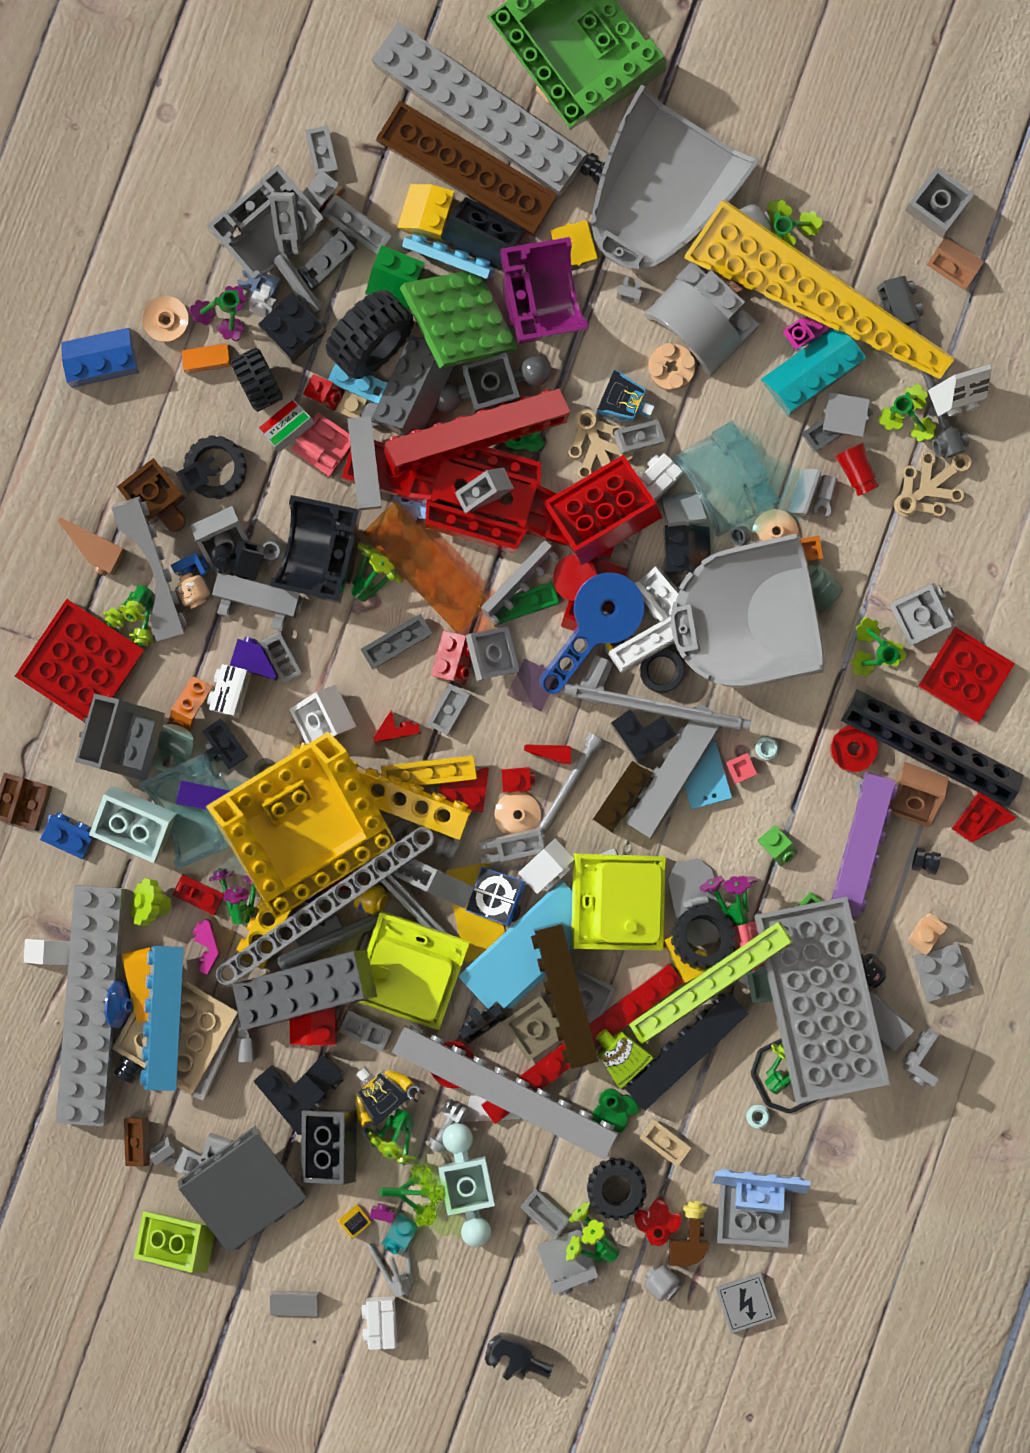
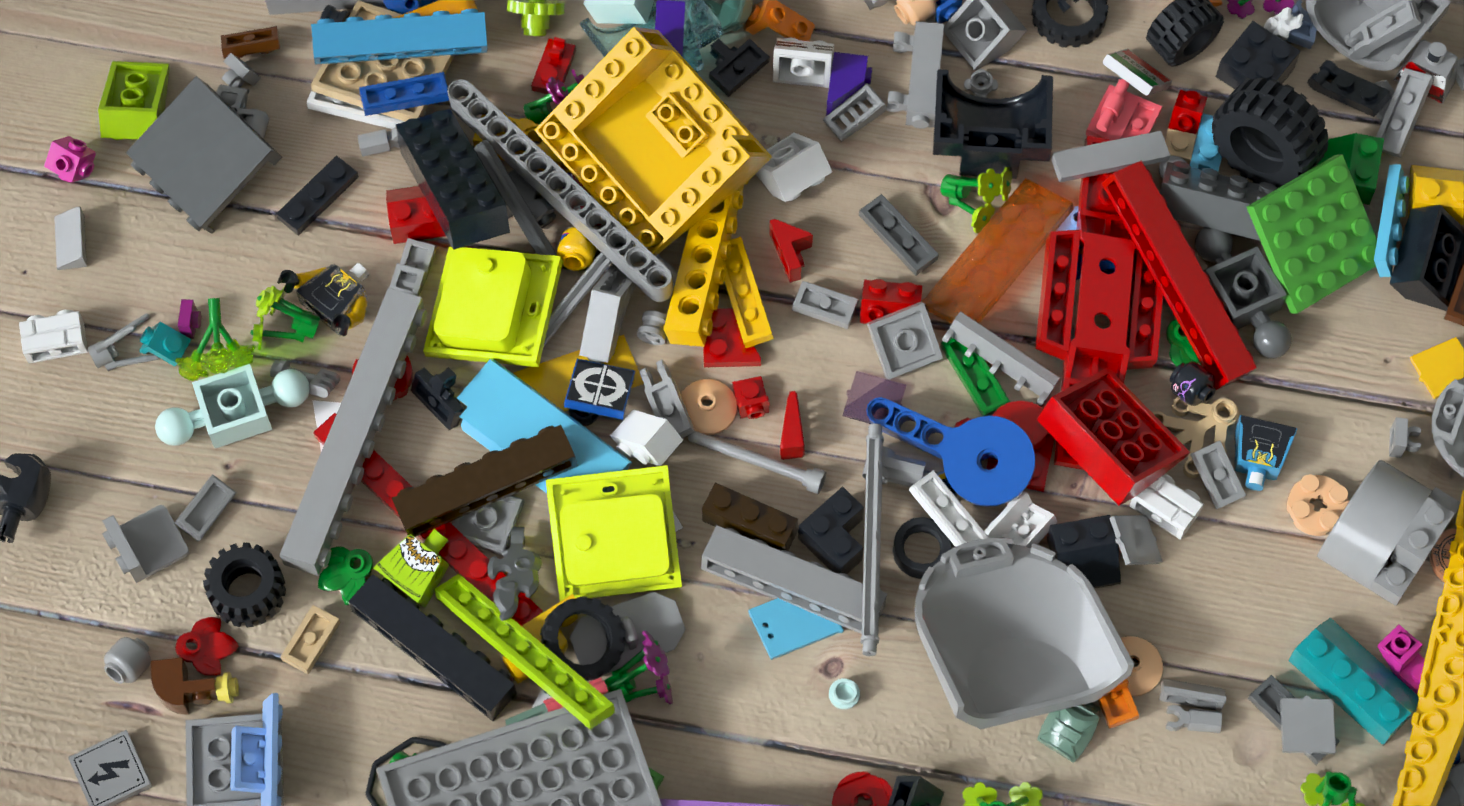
camera: 80 degrees right, 20 degrees down
(206, 936) = (503, 81): dark pink slope -> none
(213, 1019) = (404, 93): none -> blue tile
(225, 1298) = (70, 159): none -> dark pink brick
(243, 562) = (959, 49): black brick -> none
(297, 283) = (1315, 60): light grey axle -> none
(314, 1083) = (340, 220): black brick -> none
(328, 1146) = (264, 245): black slope -> none
(354, 1221) = (174, 288): slope -> none
(484, 489) = (1108, 287): light grey slope -> none
(532, 1028) = (436, 453): dark tan plate -> none
(542, 292) = (1370, 338): magenta piece -> none
(562, 439) = (1192, 383): none -> black head
(594, 1232) = (165, 585): plant -> none
(642, 975) = (522, 574): none -> dark grey piece
(726, 476) = (1188, 574): clear light blue piece -> none
(740, 535) = (1120, 618): dark grey hinge -> none
(741, 768) = (812, 663): coral plate -> none
(765, 1116) = (357, 743): light aqua plate -> none
(778, 846) = (716, 725): bright green bracket -> none
(857, 469) = (1239, 752): red plant -> none

